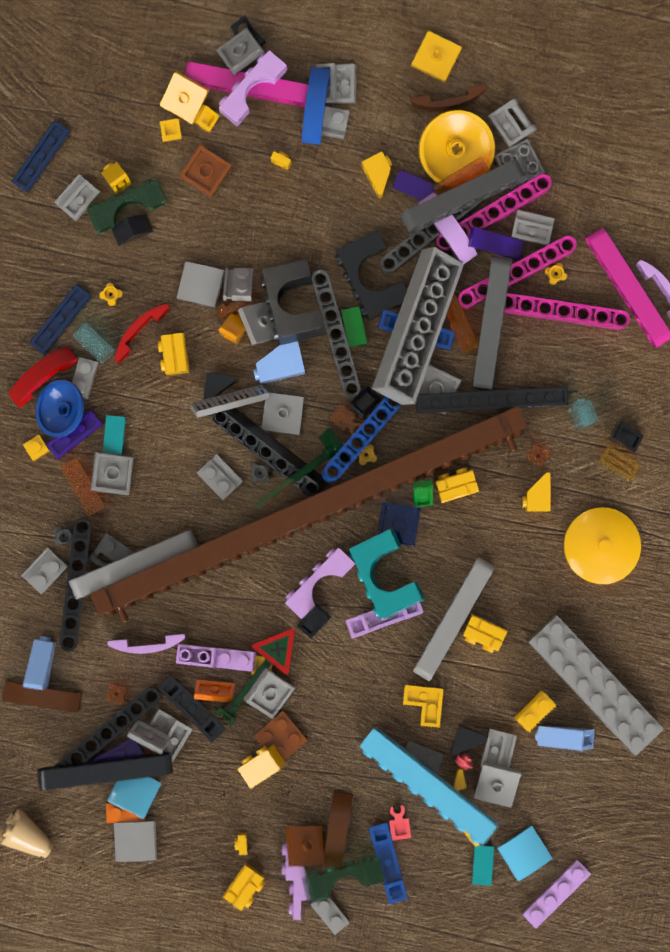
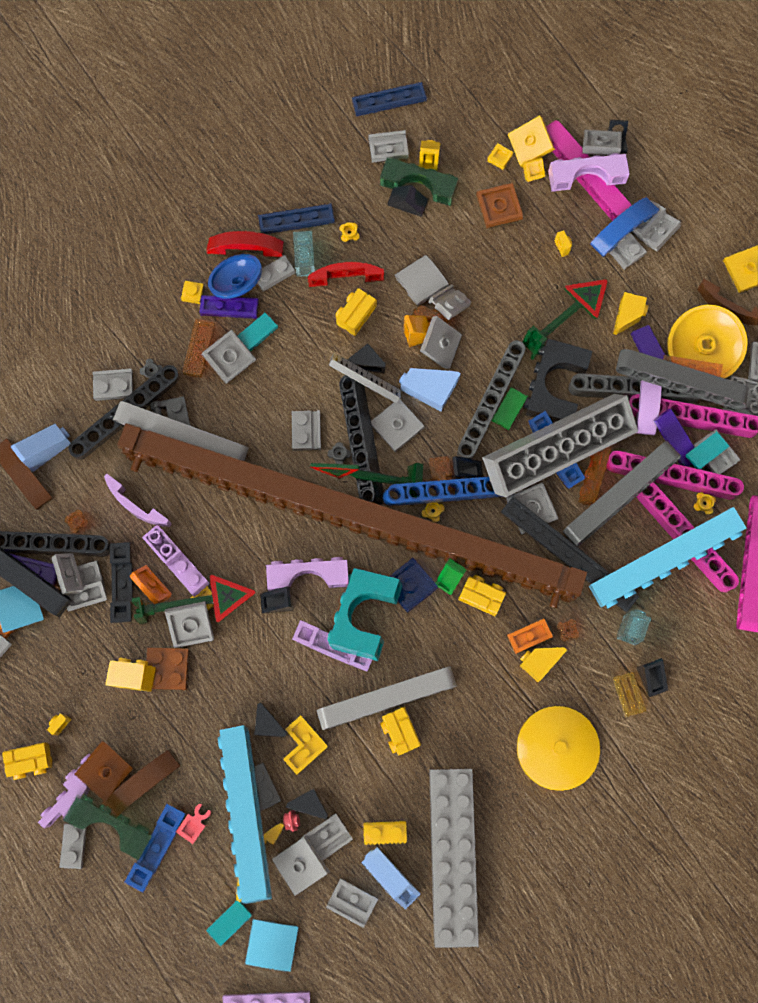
camera: 40 degrees right, 10 degrees down
(290, 327) = (484, 326): black arch -> none
(335, 187) = (587, 296): none -> dark green piece
(388, 711) = (266, 724): none -> black slope
(515, 484) = (529, 636): none -> orange plate
(525, 233) = (707, 450): none -> teal tile
(553, 777) = (352, 903): none -> light grey plate
(564, 342) = (670, 555): none -> medium azure brick

